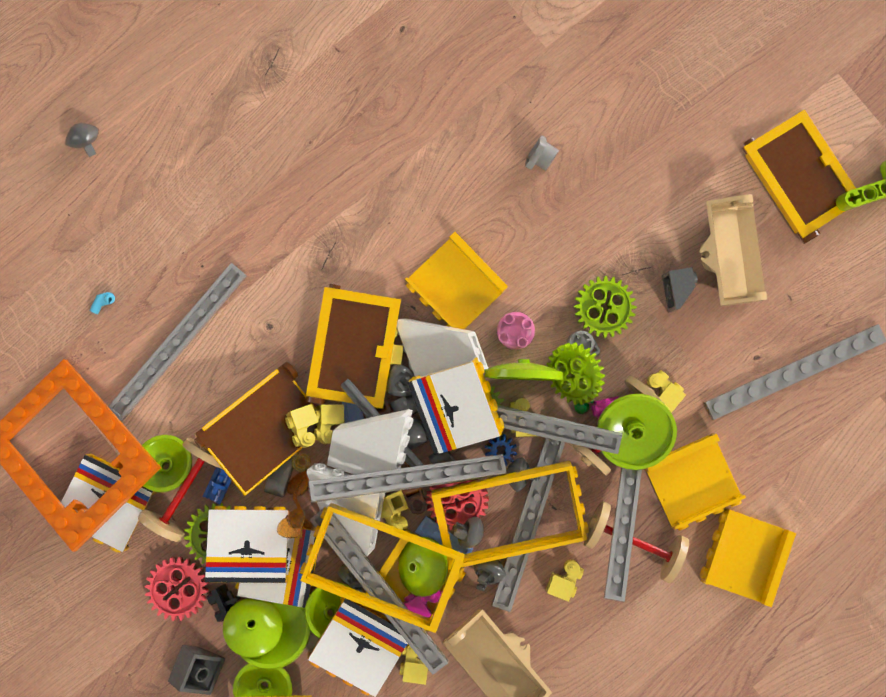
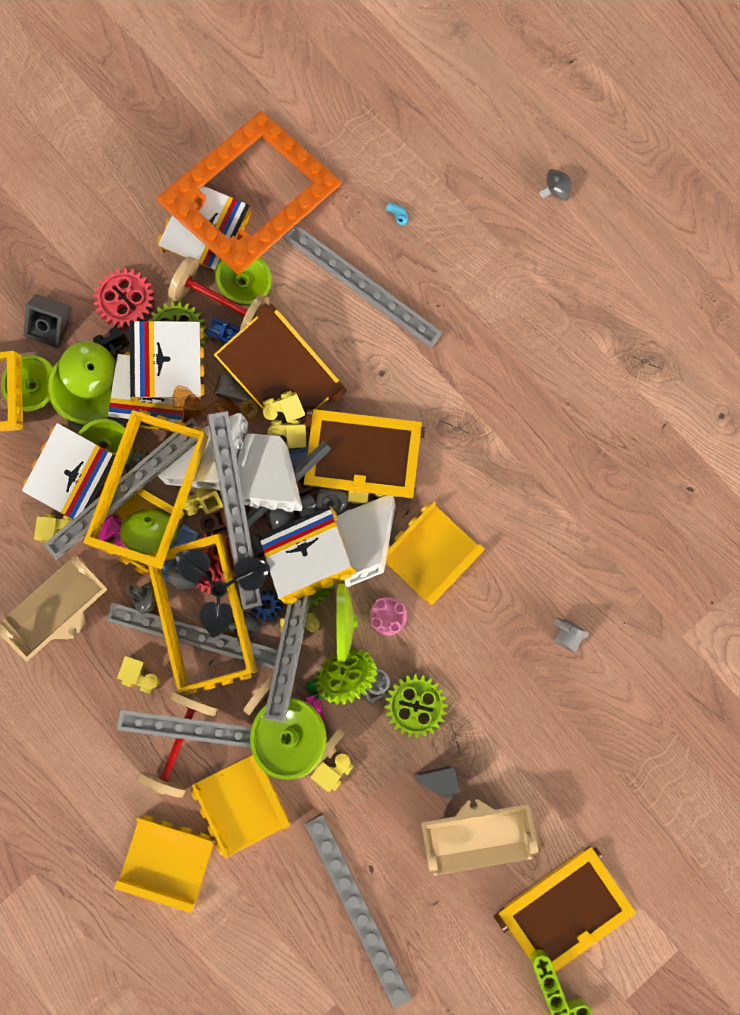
camera: 90 degrees right, 5 degrees down
(513, 502) = (217, 616): none -> black plant

